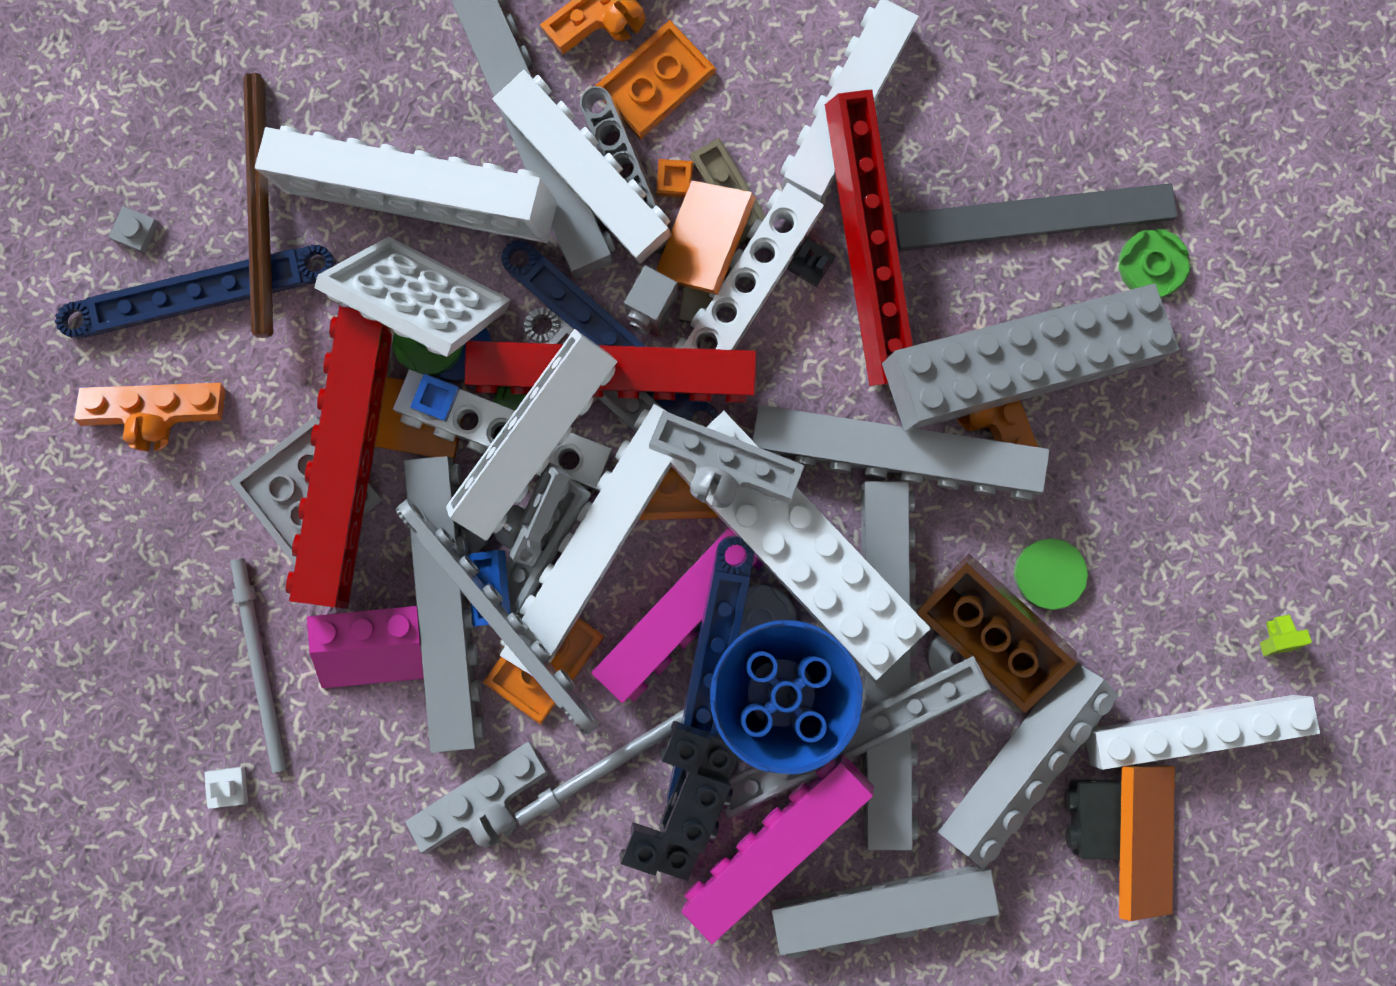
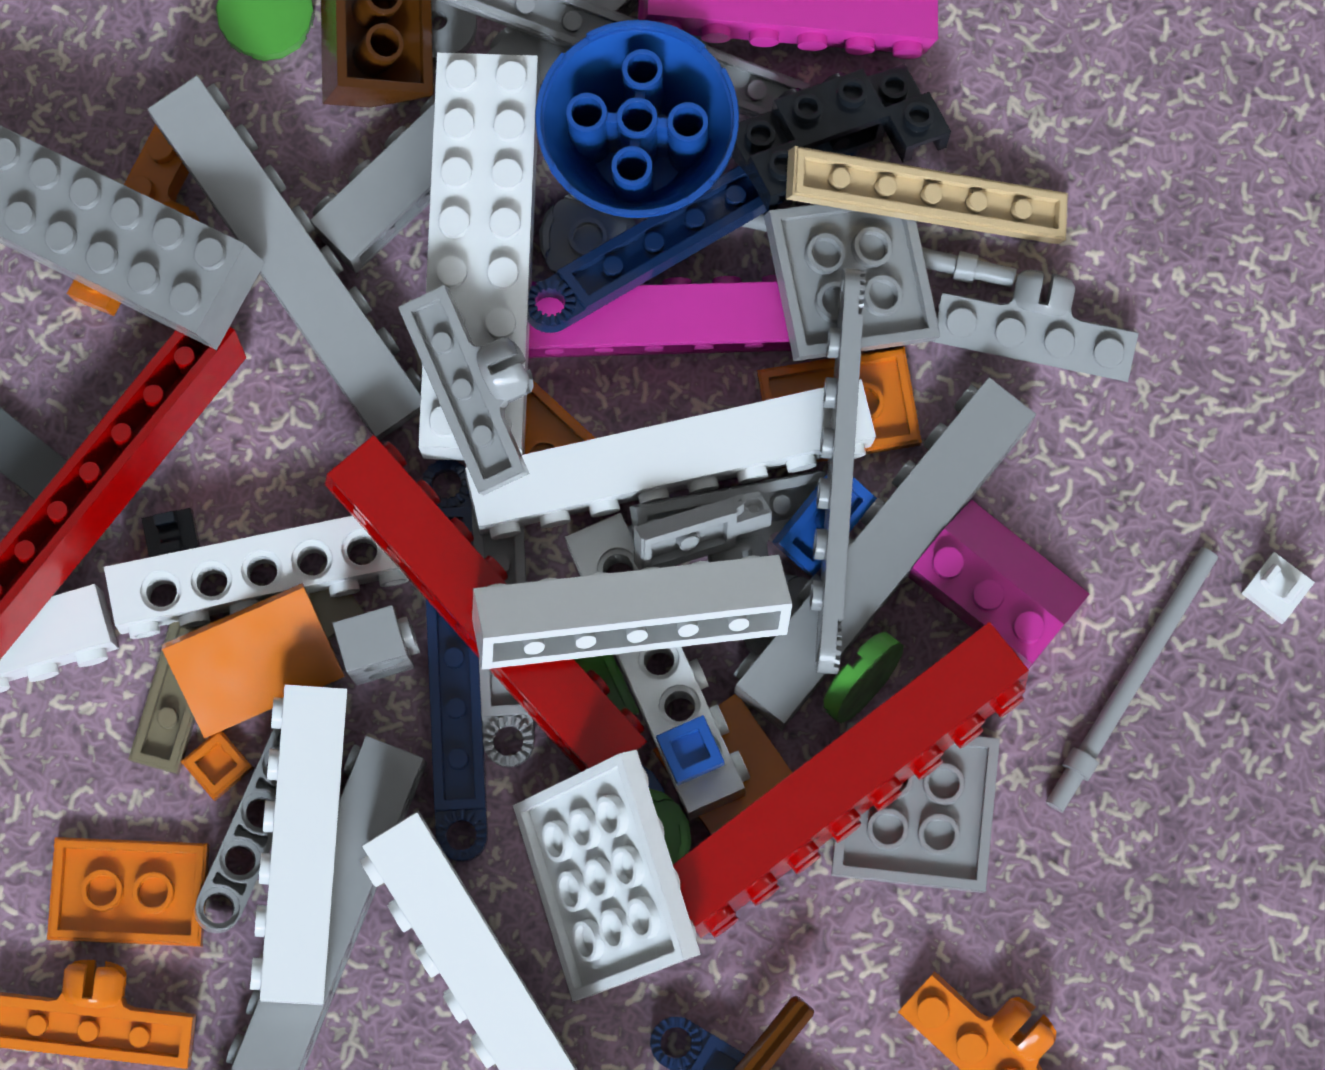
camera: 130 degrees left, 5 degrees down
(390, 526) = (859, 683): none -> bright green tile
(601, 814) = (926, 195): none -> tan tile
(613, 751) = (809, 254): none -> light grey plate

